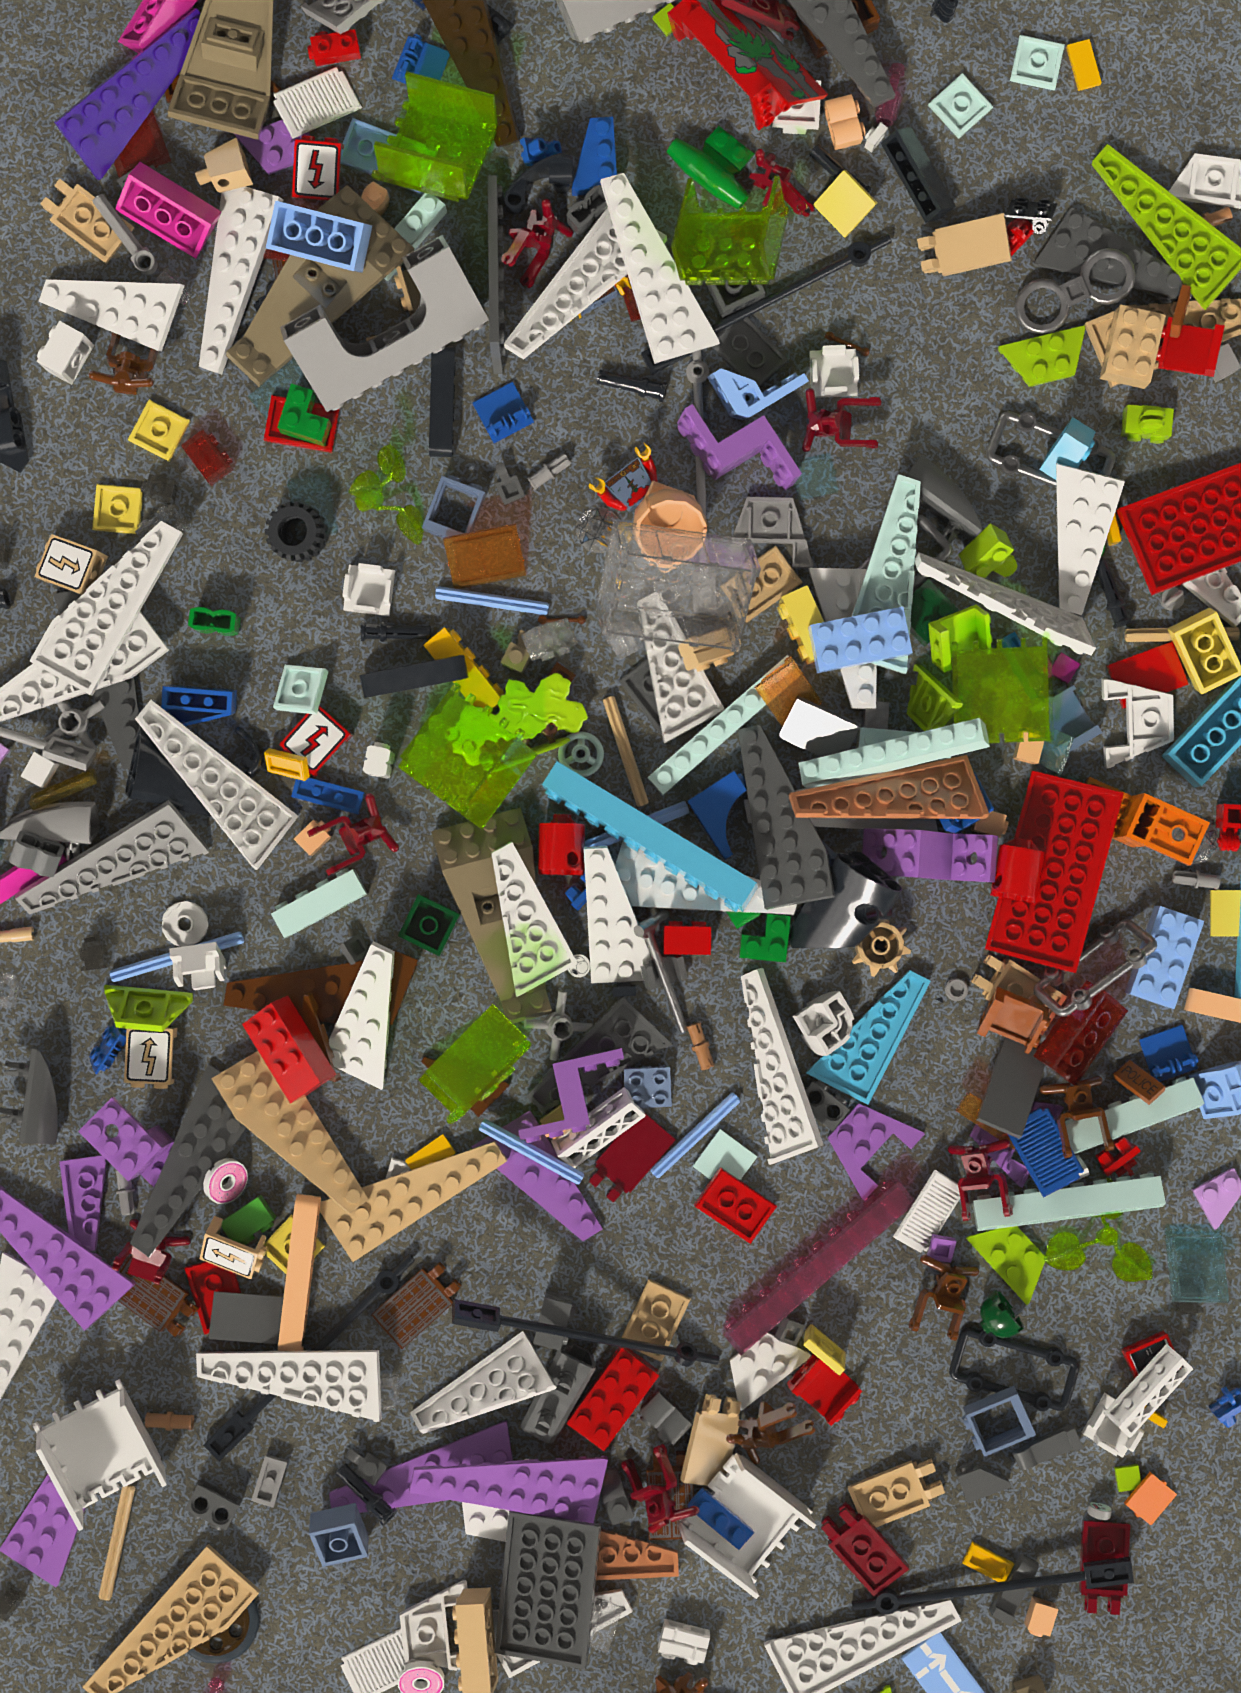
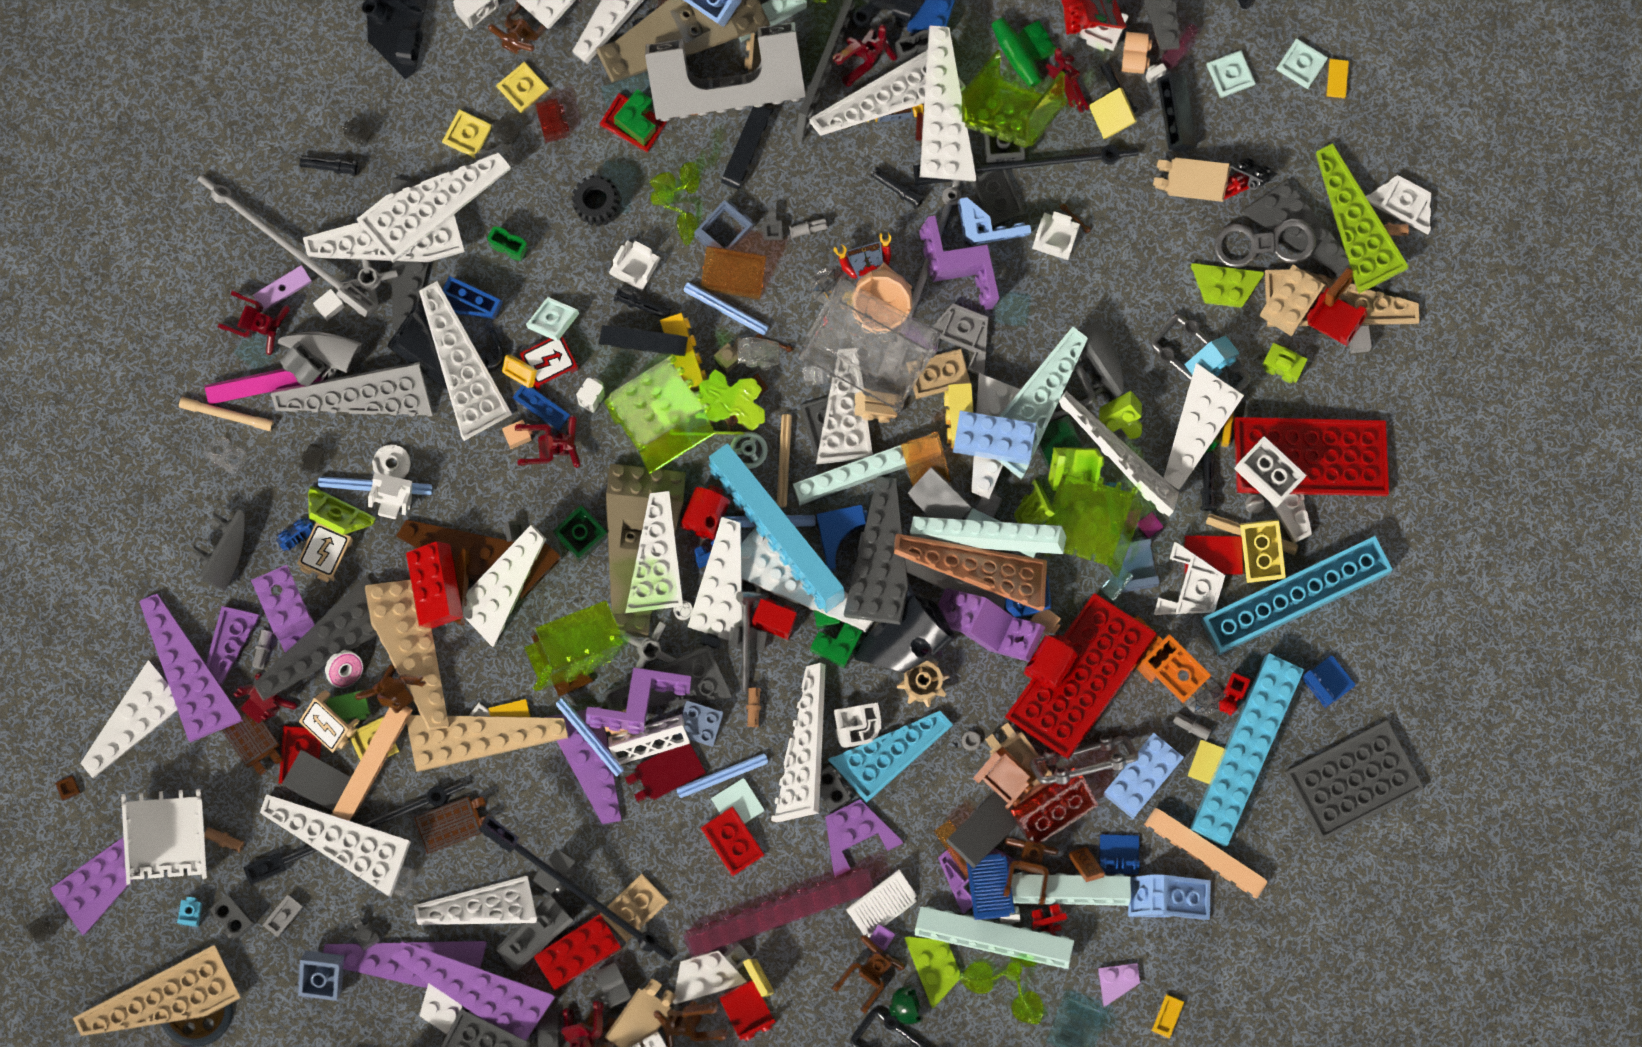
camera: 20 degrees right, 10 degrees down
(63, 789) = (342, 325): clear yellow tile -> none
(70, 564) = (415, 160): panel -> none
(116, 1542) = (143, 919): tan axle -> none
(169, 1509) = (190, 919): none -> medium azure brick
(291, 1190) = (392, 691): none -> reddish brown piece
(319, 902) = (501, 485): light aqua brick -> none
(373, 1501) = (359, 960): black pin -> none
(503, 412) = (790, 171): blue hinge -> none
(835, 423) = (1042, 273): dark red piece -> none
(979, 1174) = (932, 883): dark red piece -> none
(1028, 751) = (1098, 575): light nougat brick -> none
(1185, 558) = (1270, 472): none -> white brick

